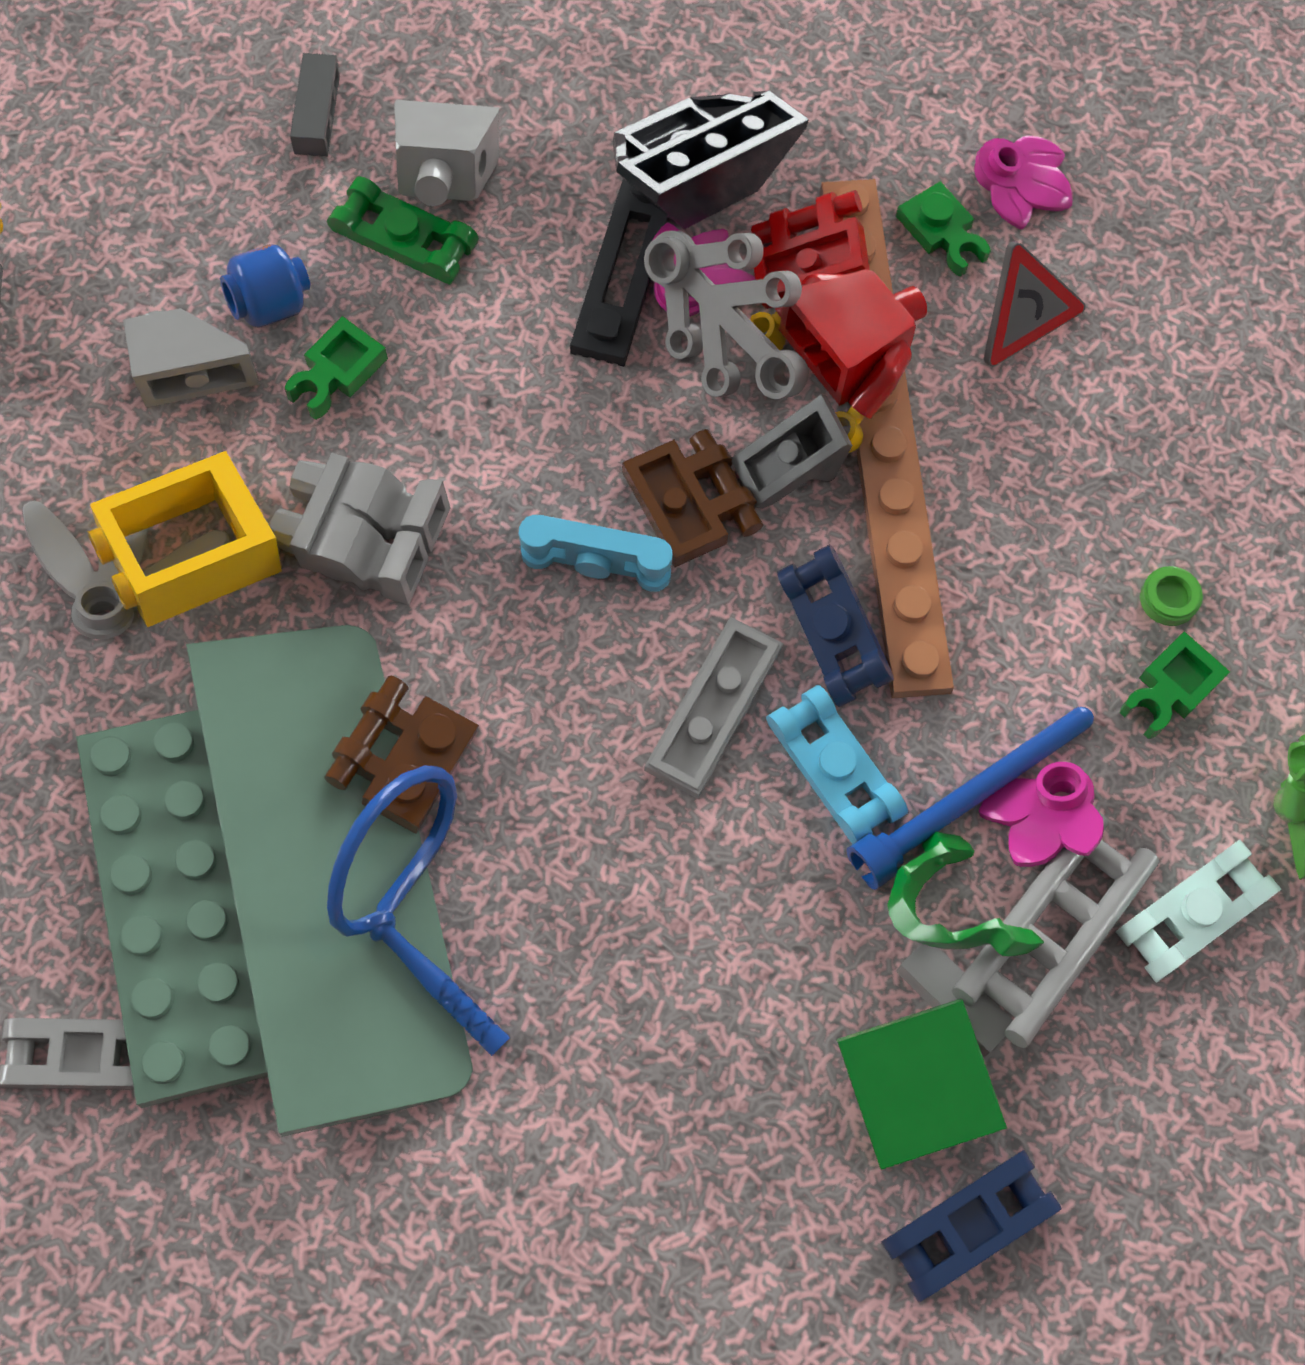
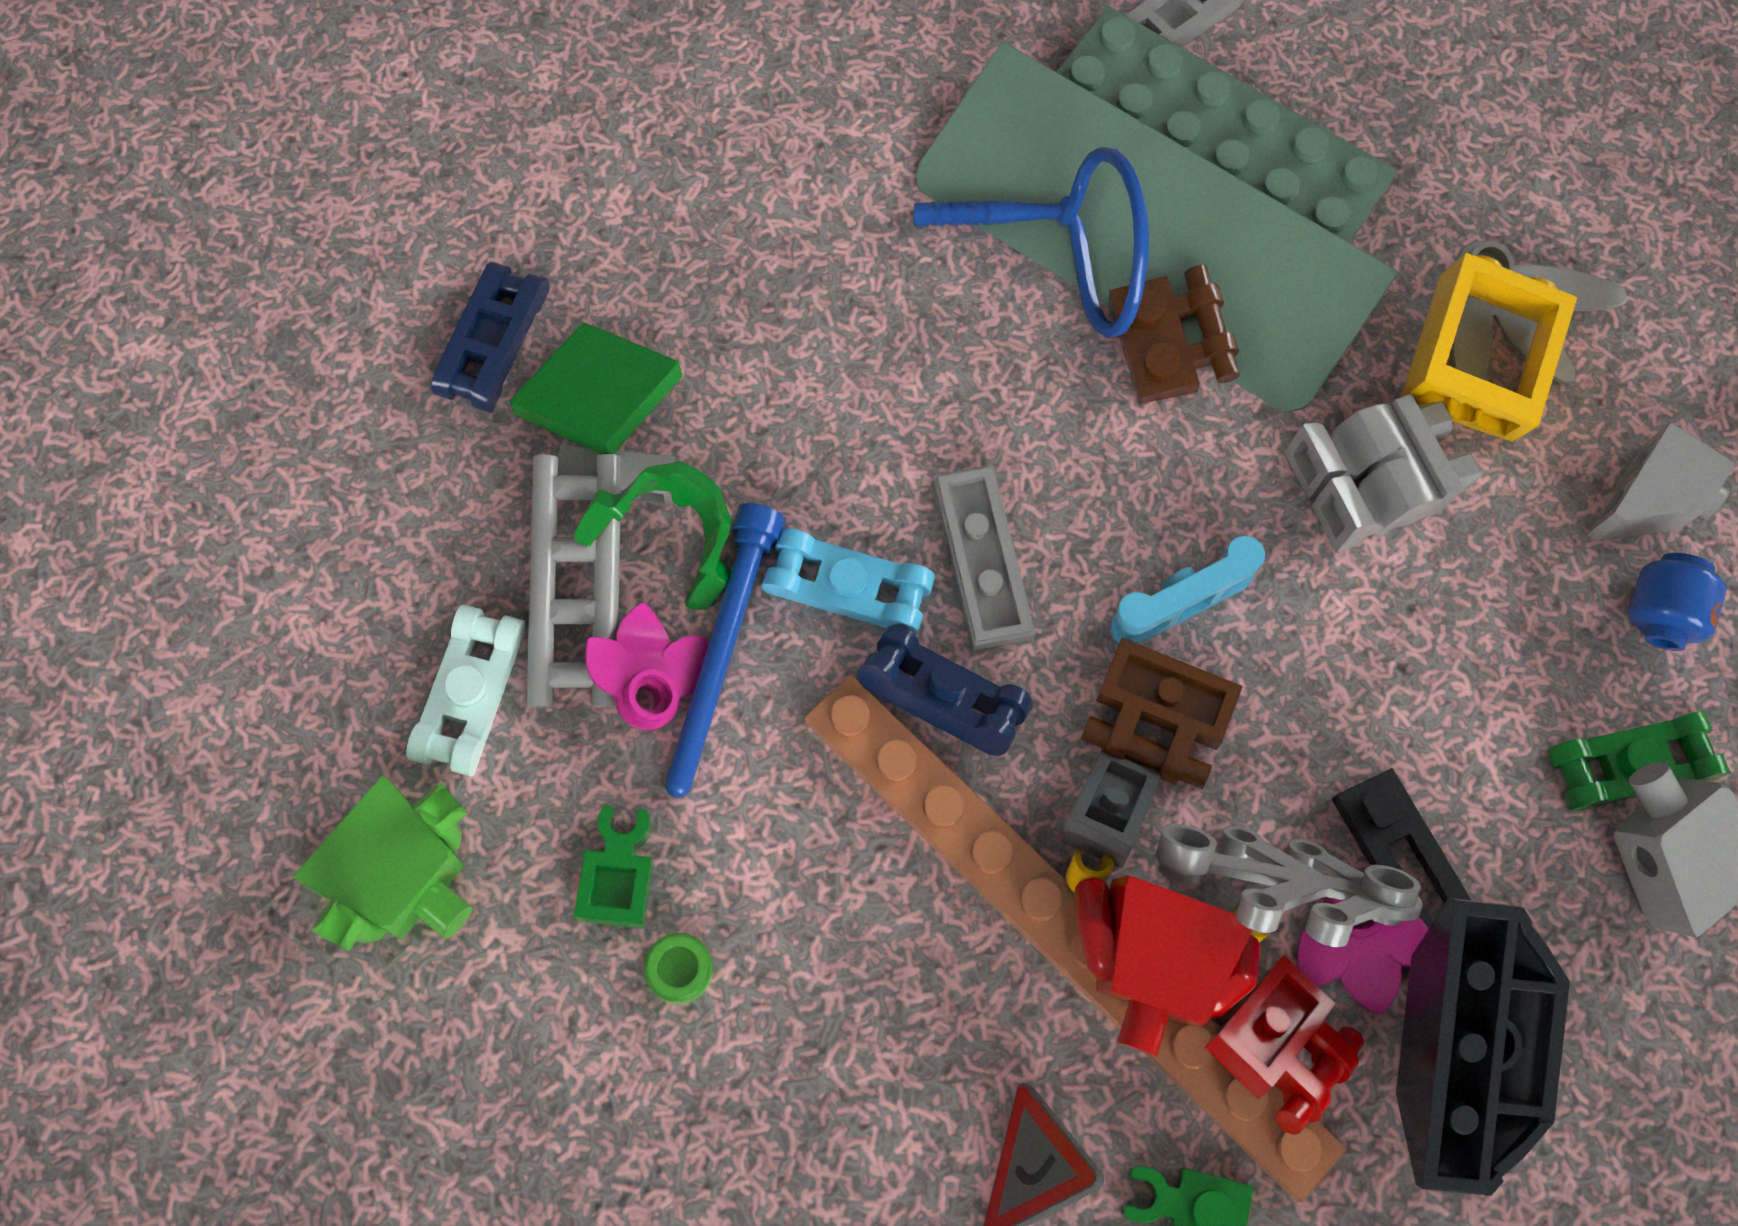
camera: 140 degrees right, 0 degrees up
(338, 360) = (1543, 591): green plate -> none

